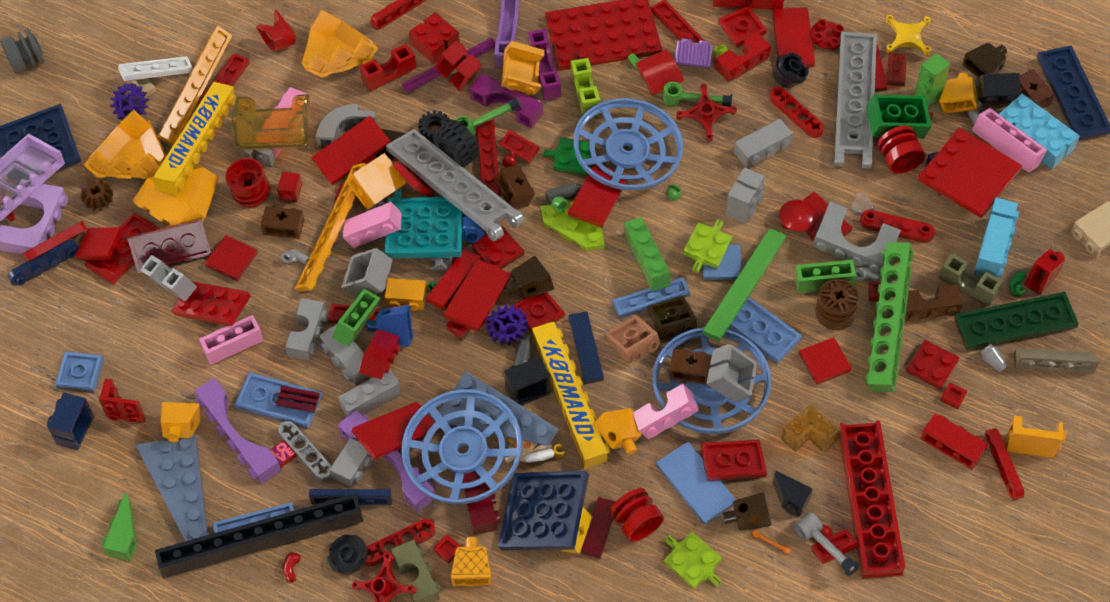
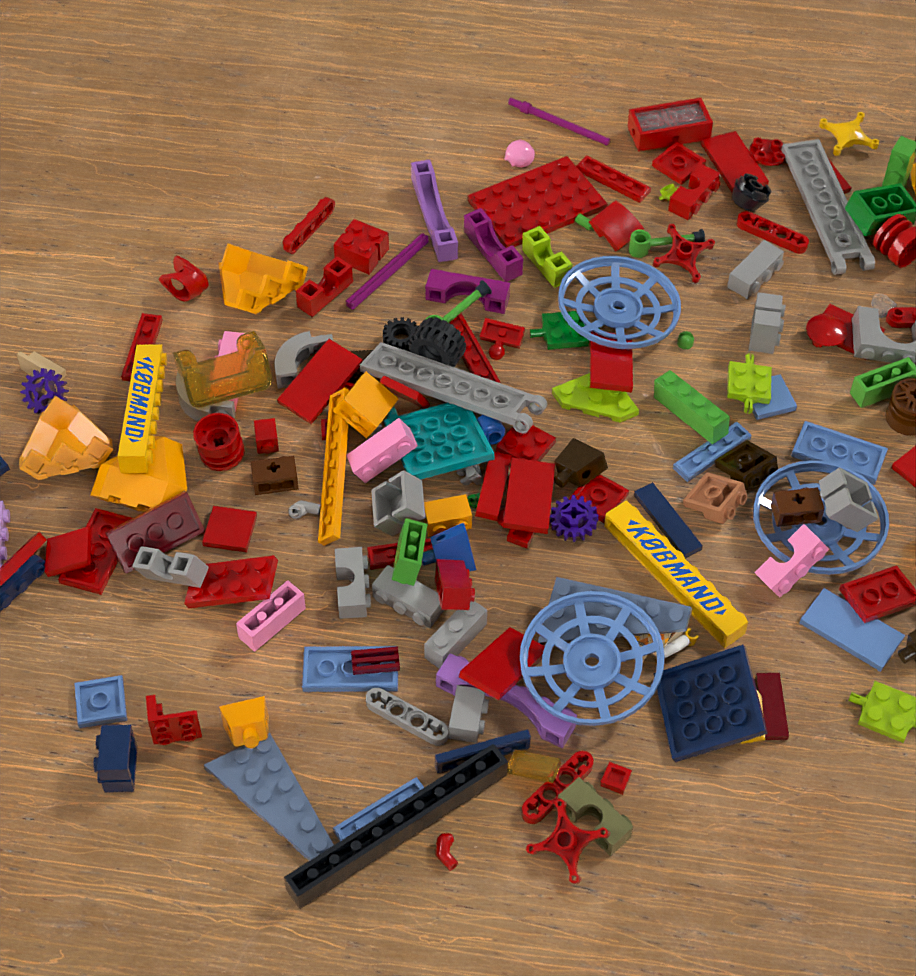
camera: 20 degrees left, 5 degrees down
(97, 195) = (44, 500): reddish brown gear -> none
(122, 534) = (232, 873): bright green slope -> none
(155, 68) = (59, 348): white tile -> none
(194, 86) = (111, 358): light orange plate -> none
(259, 459) = (357, 740): medium lavender arch -> none
(283, 453) = (381, 726): tile -> none
(347, 554) = (507, 817): black tile -> none
(385, 520) = (533, 766): none -> clear yellow tile
(457, 58) = (407, 259): red piece -> none
(471, 565) = (654, 787): light orange torso -> none
(482, 512) = (639, 729): dark red brick -> none
(514, 186) = (517, 373): reddish brown brick -> none
(521, 68) = (473, 251): light orange panel -> none
(524, 350) = (605, 546): dark grey cylinder -> none
(527, 381) = (628, 568): black piece -> none
(559, 204) = (575, 379): bright green hinge -> none
(565, 191) = (569, 368): dark grey cylinder -> none
(619, 429) = (749, 595): light orange torso -> none
(637, 515) = (816, 681): red wheel -> none
(693, 53) = (644, 199): medium lavender brick -> none
(744, 285) = (807, 413): bright green tile -> none
(896, 69) = (852, 168): clear red plate -> none

